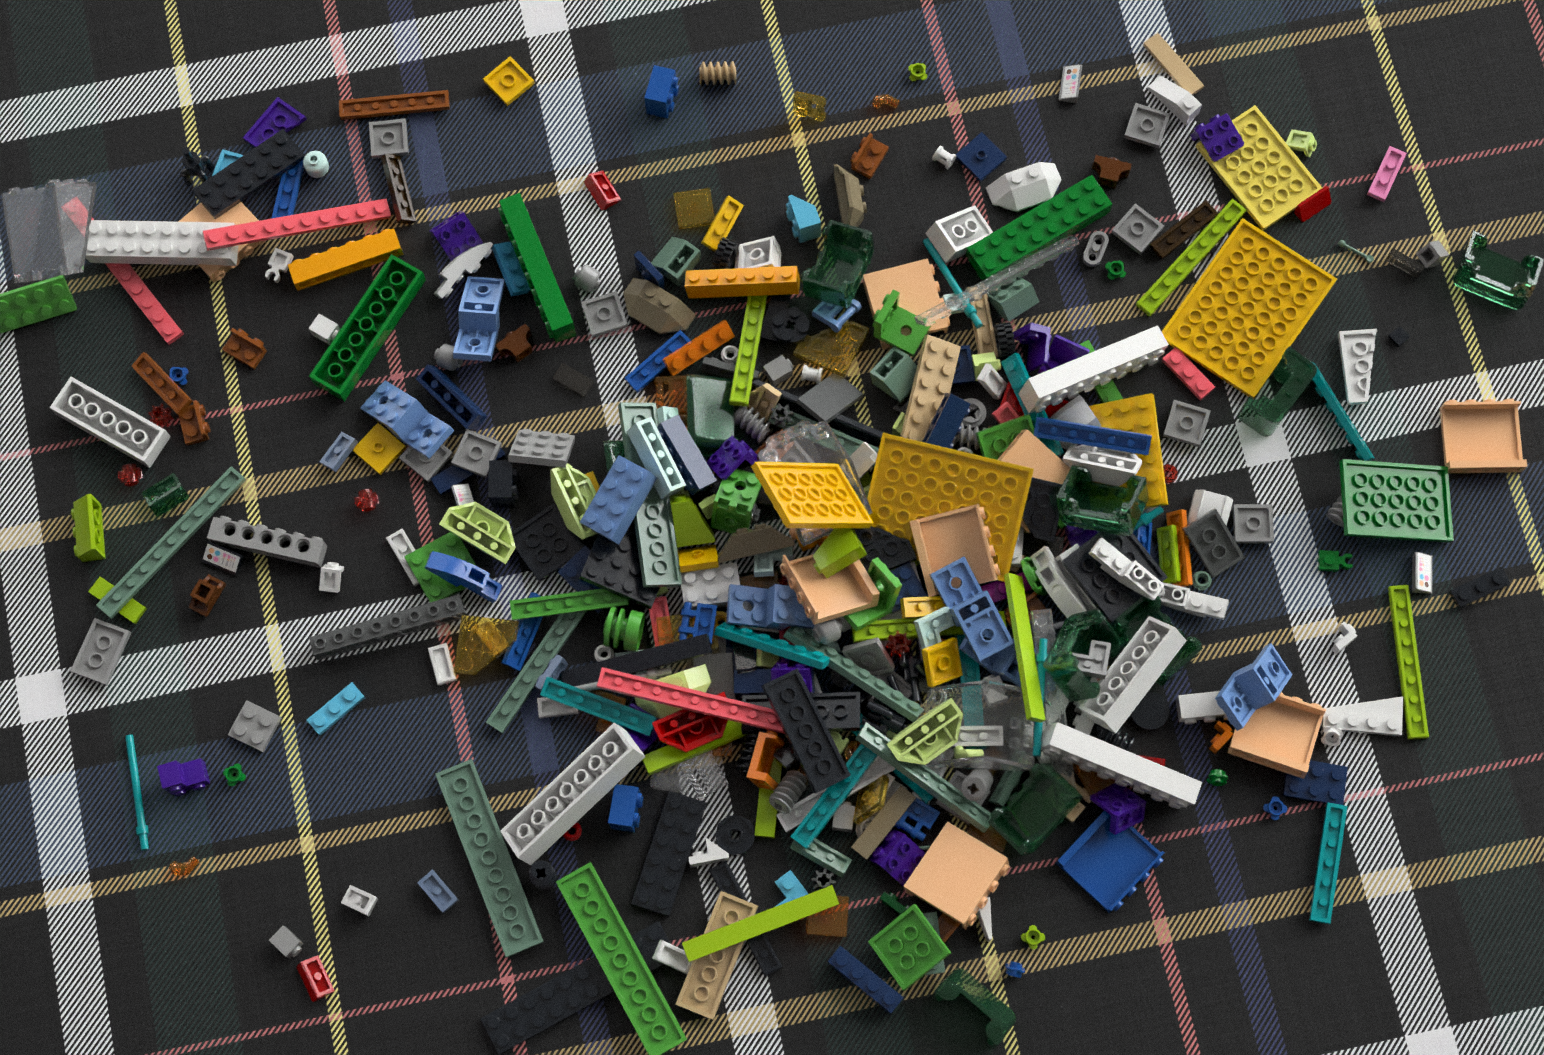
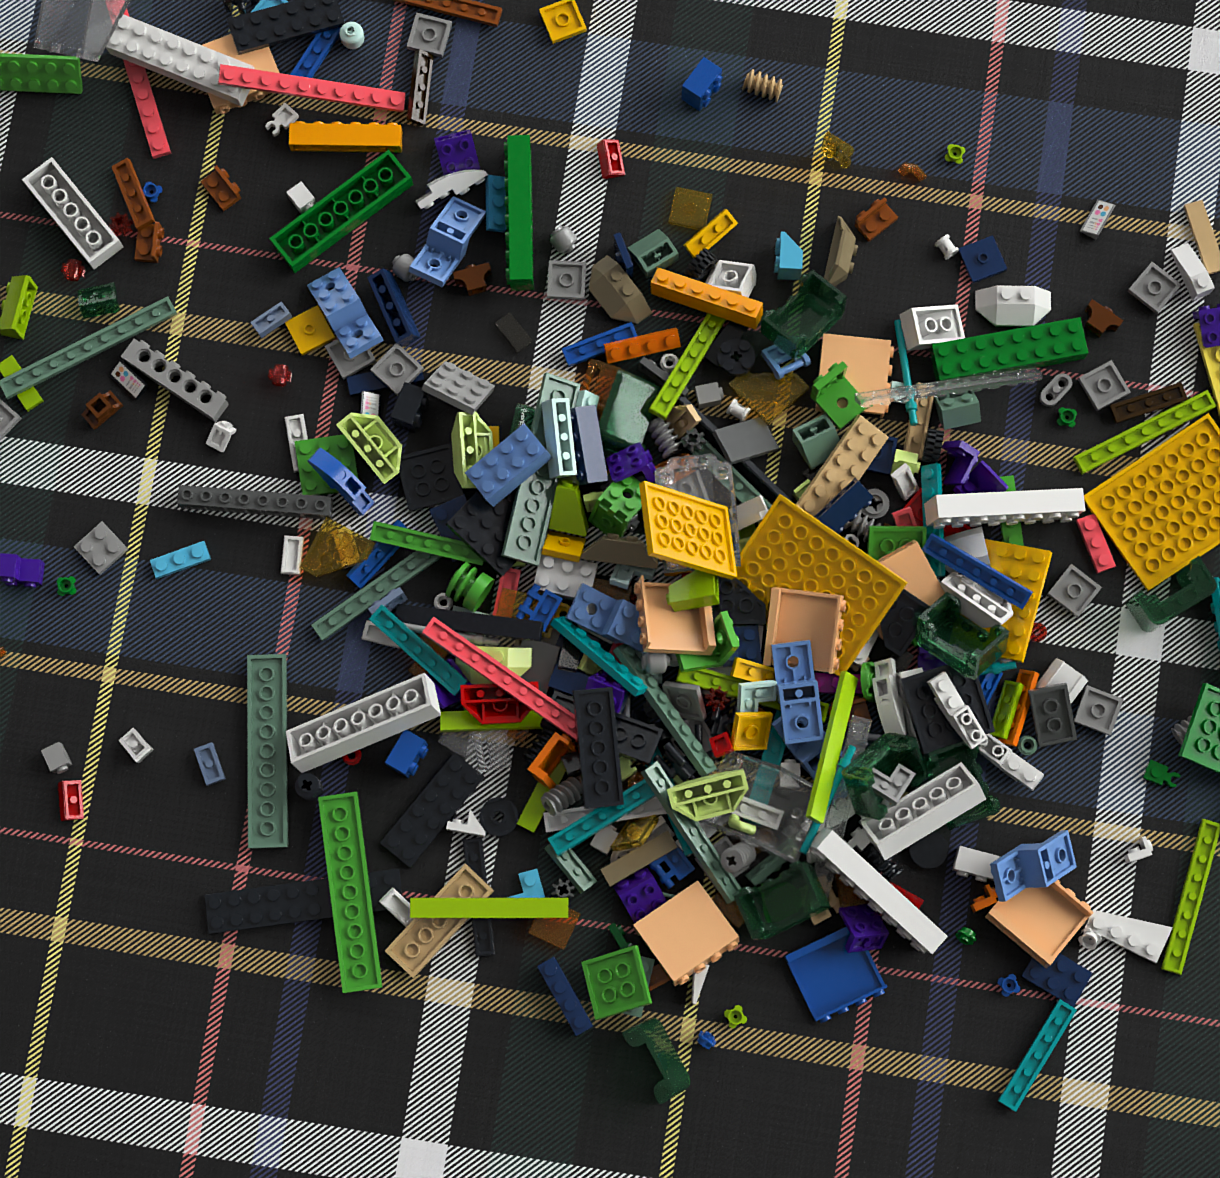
camera: 20 degrees right, 5 degrees up
(920, 685) = (721, 744): none -> red plate

